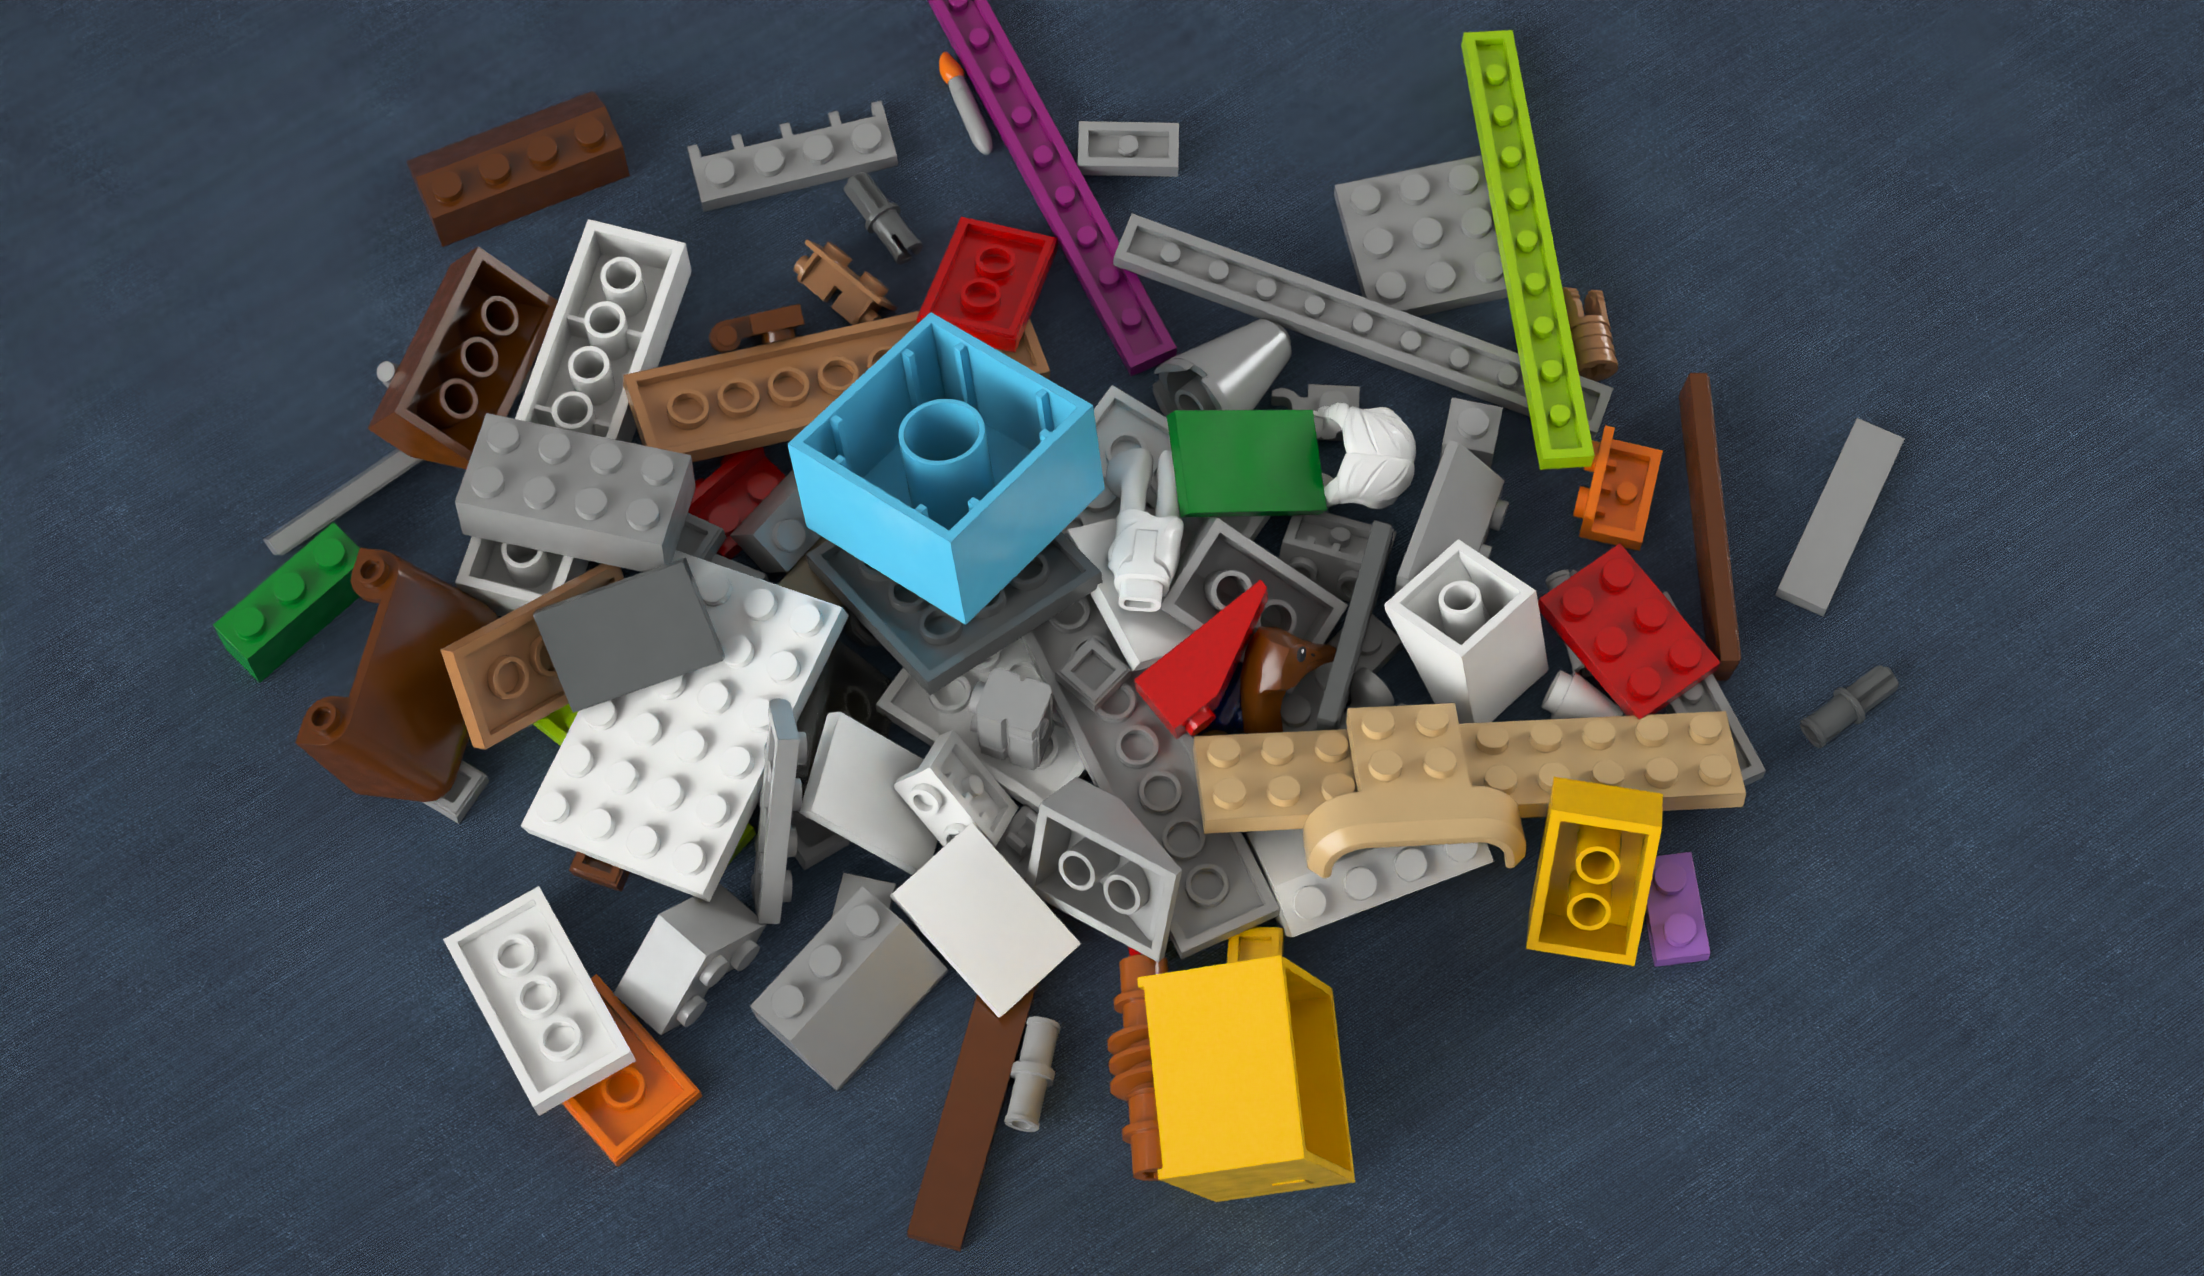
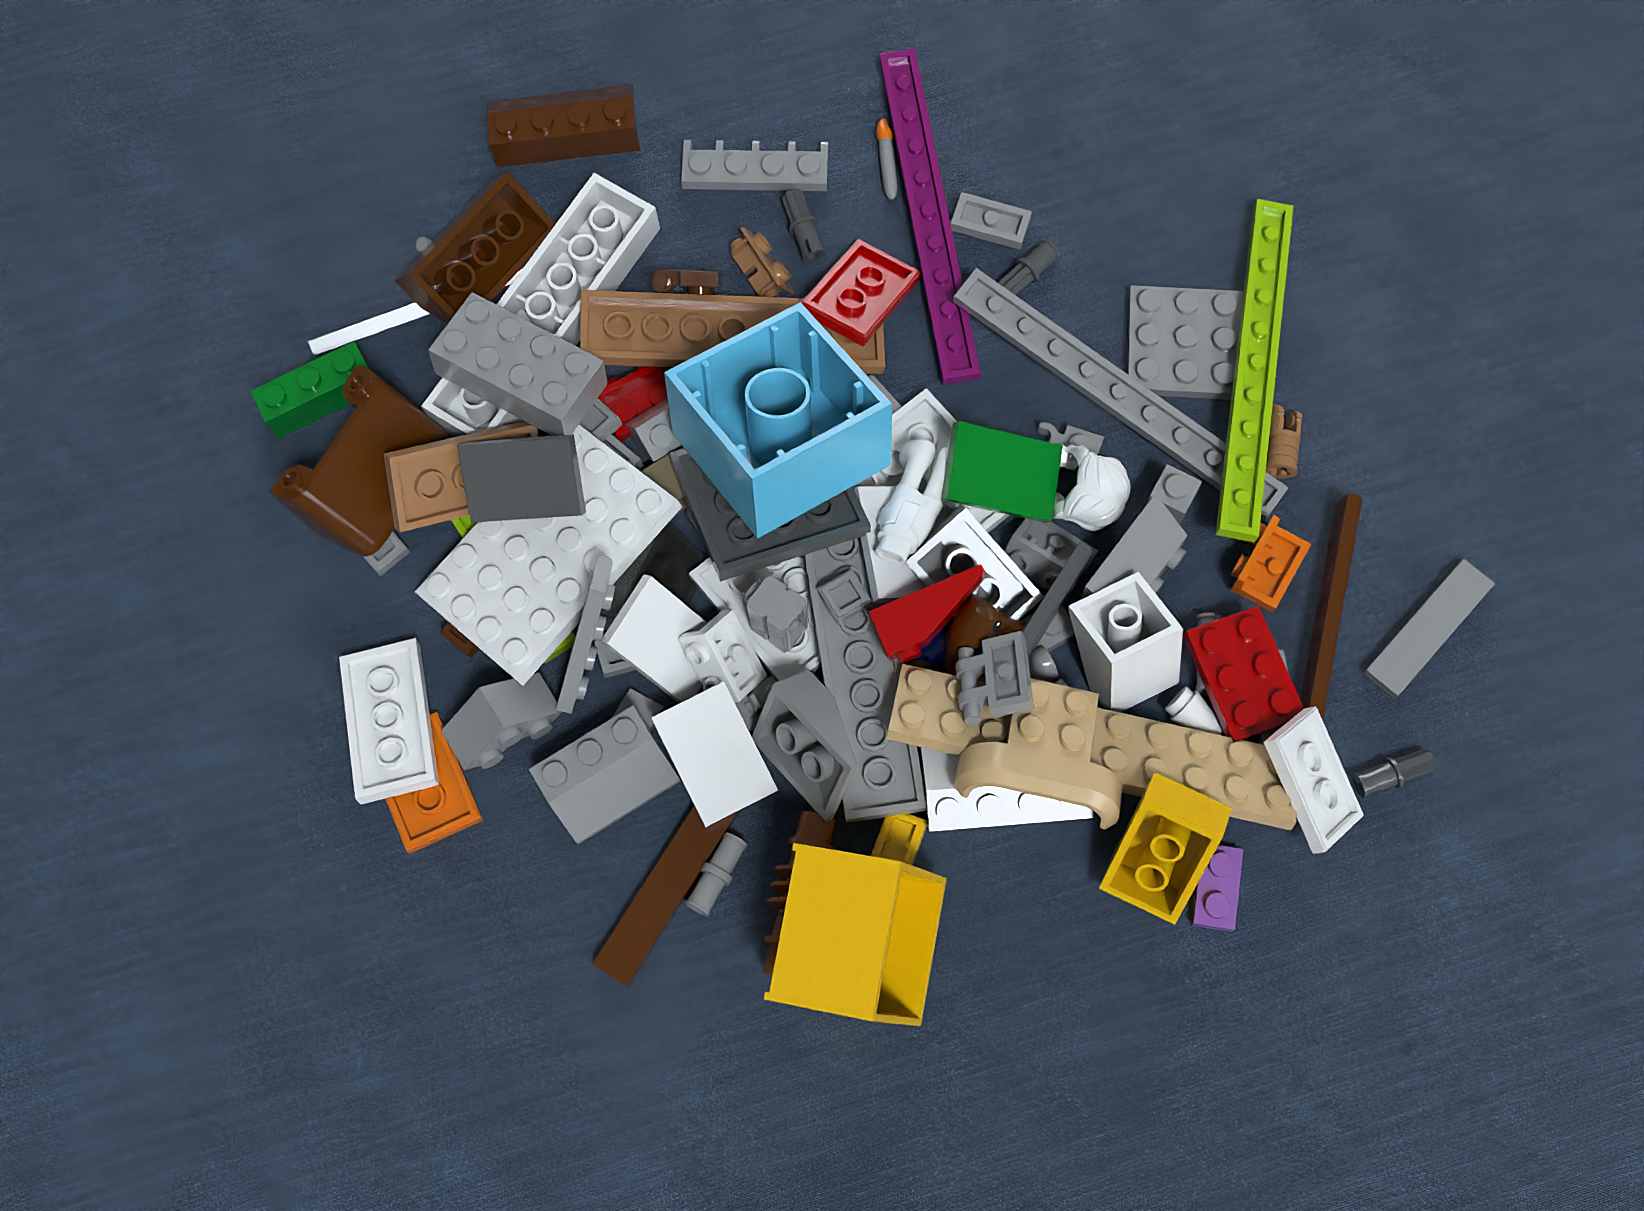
camera: 20 degrees right, 5 degrees up
(1198, 196) = (1030, 267): none -> dark grey axle
(1226, 371) = (1009, 401): light grey cone -> none
(1335, 710) = (1006, 673): none -> light grey plate
(1753, 737) = (1314, 779): none -> white tile

